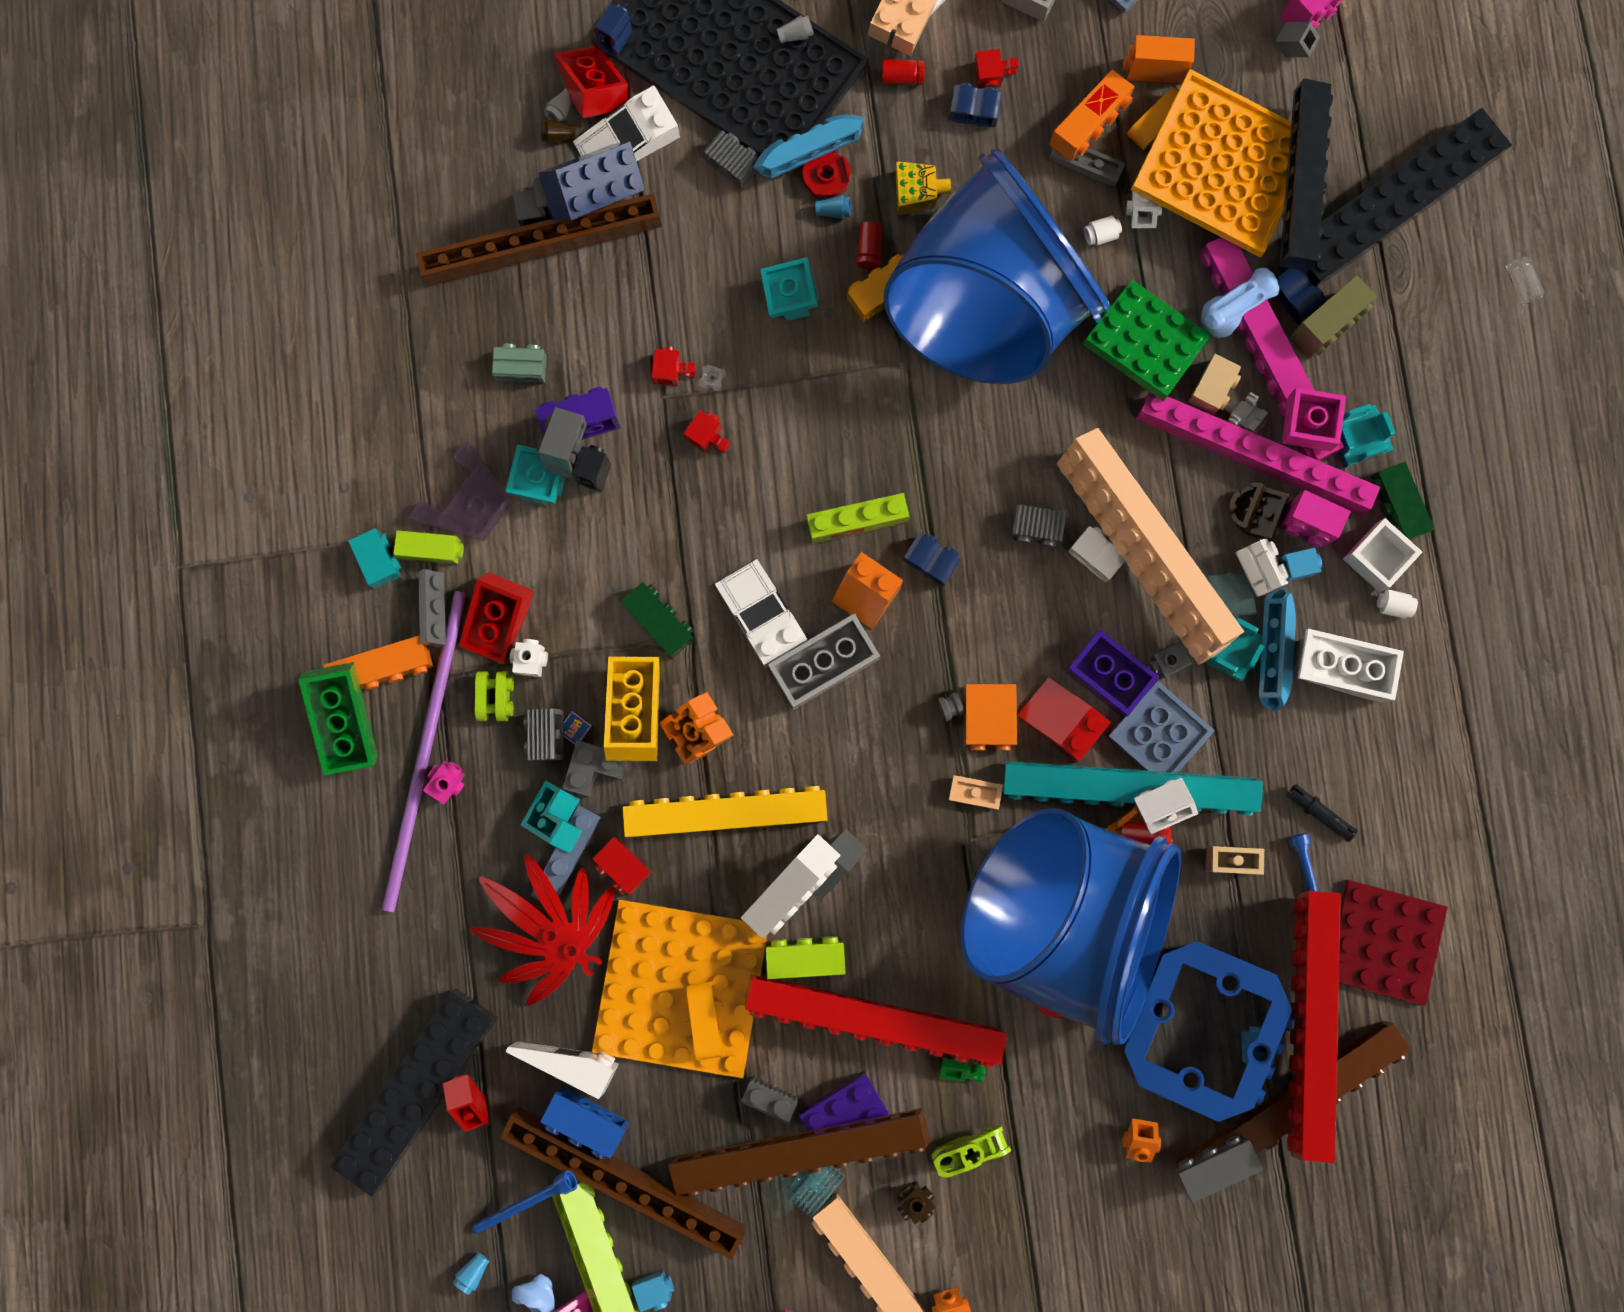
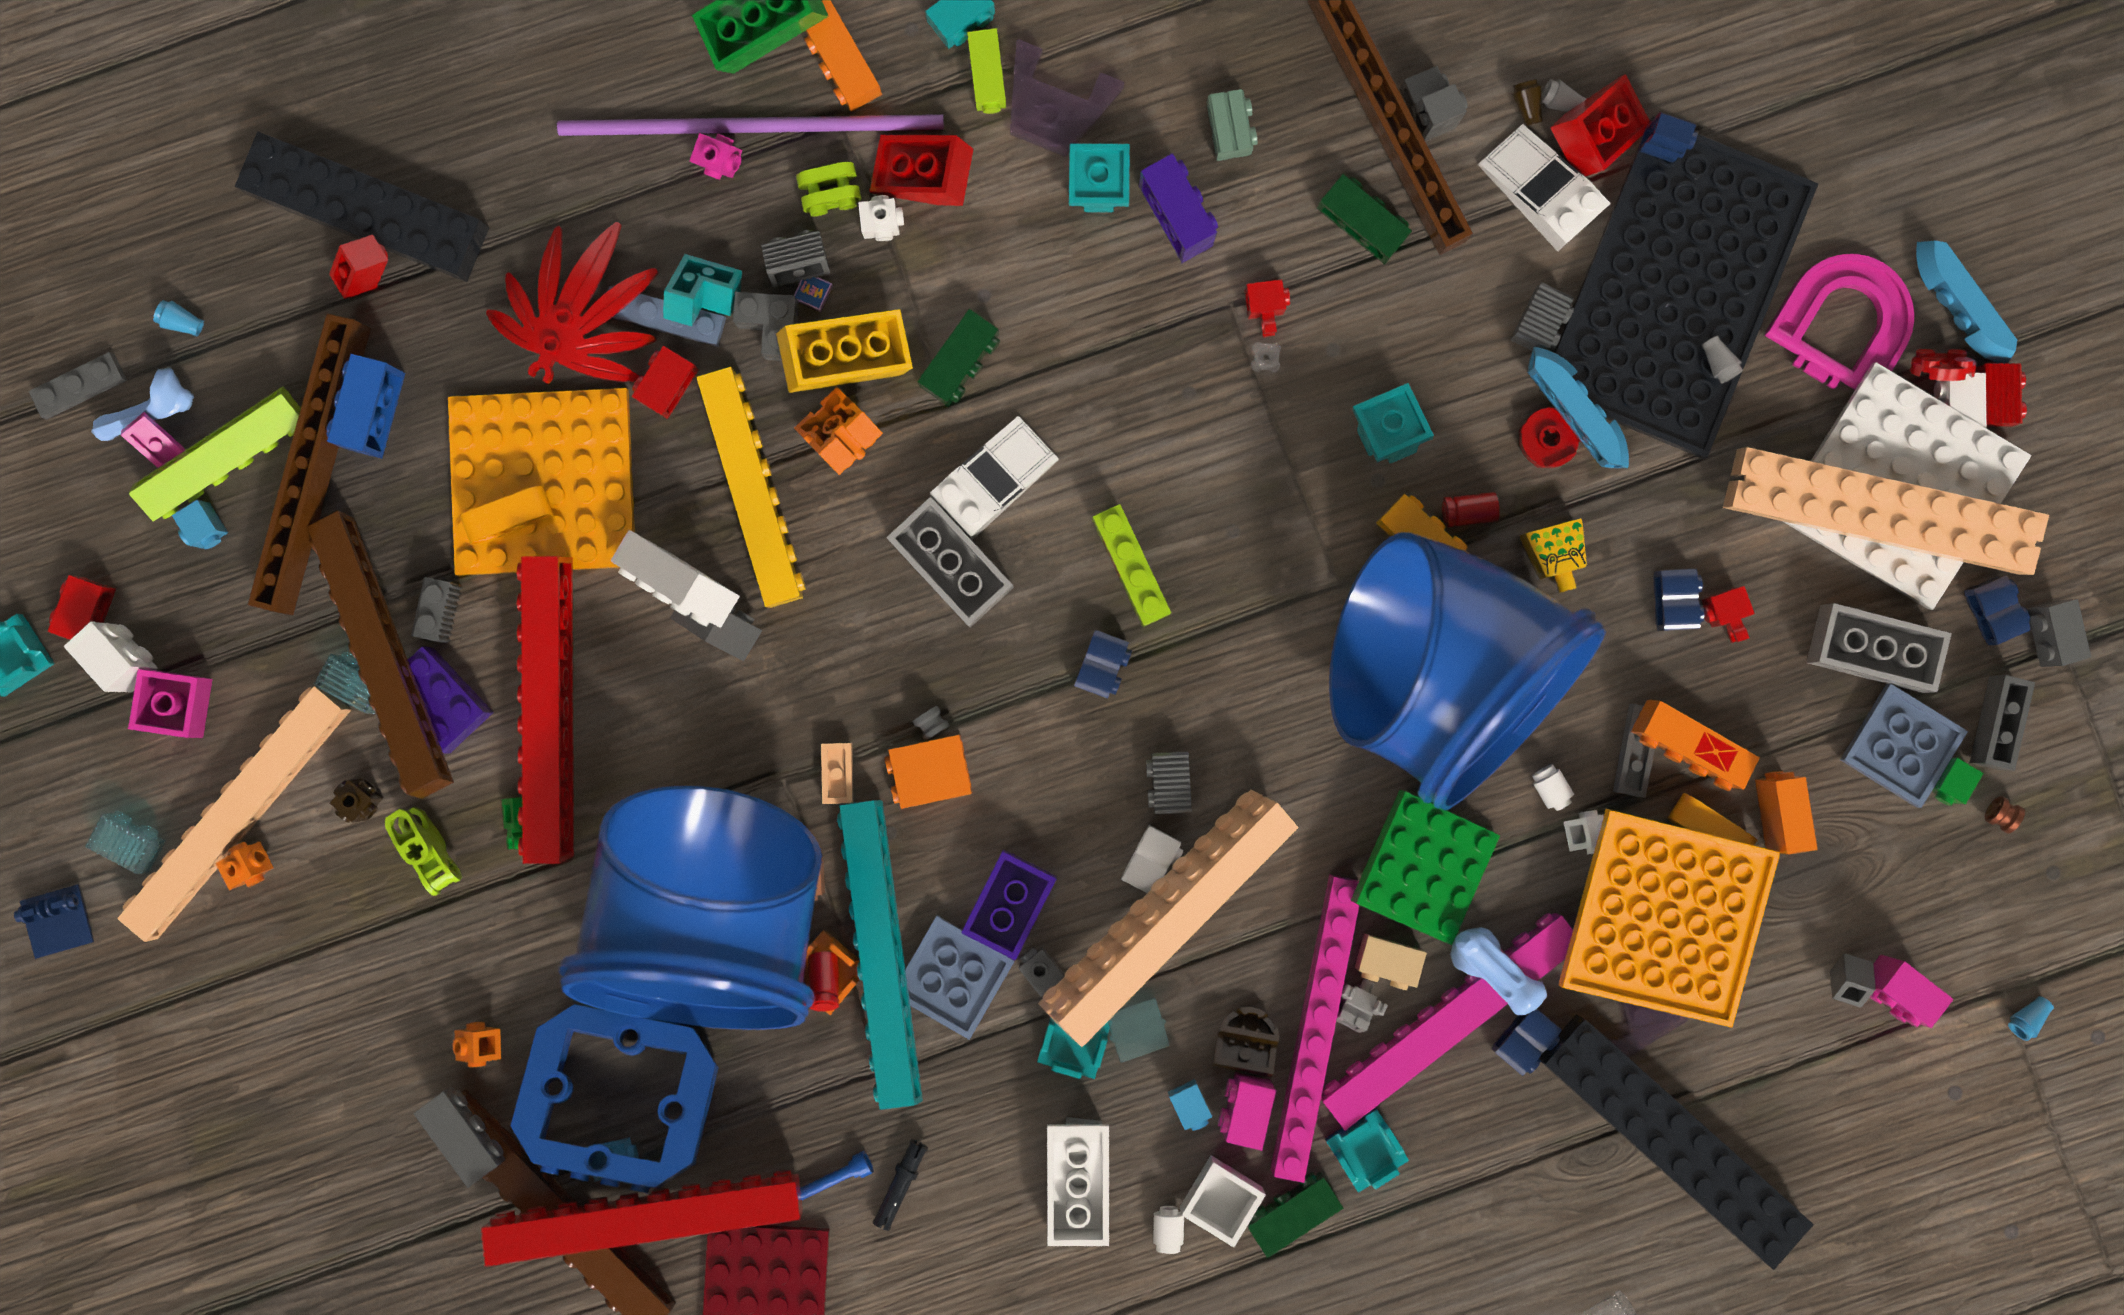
camera: 80 degrees right, 5 degrees up
(432, 608) = (915, 92): dark grey plate -> none
(561, 442) = (1137, 192): dark grey brick -> none
(563, 1184) = (289, 396): blue piece -> none
(579, 1068) = (424, 376): white slope -> none
(591, 181) = (1467, 155): brick -> none
(592, 467) = (1121, 238): black brick -> none
(620, 276) = (1364, 218): none -> dark green brick
(704, 432) = (1196, 362): red brick -> none
(805, 958) = (601, 615): lime brick -> none
(835, 207) = (1509, 457): dark azure cone -> none
(867, 590) = (1044, 594): orange slope -> none
(903, 72) = (1700, 502): red piece -> none
(1064, 719) = (944, 859): red slope -> none
(1166, 805) = (860, 995): white brick -> none
(1234, 860) = (820, 1091): tan brick -> none
(1263, 567) = (1177, 1060): white brick -> none
(1278, 649) = (1082, 1096): dark azure brick -> none
(1306, 175) = (1674, 1020): black brick -> none
(1313, 419) = (1366, 1086): dark pink brick -> none
(1334, 318) = (1503, 1089): olive brick -> none

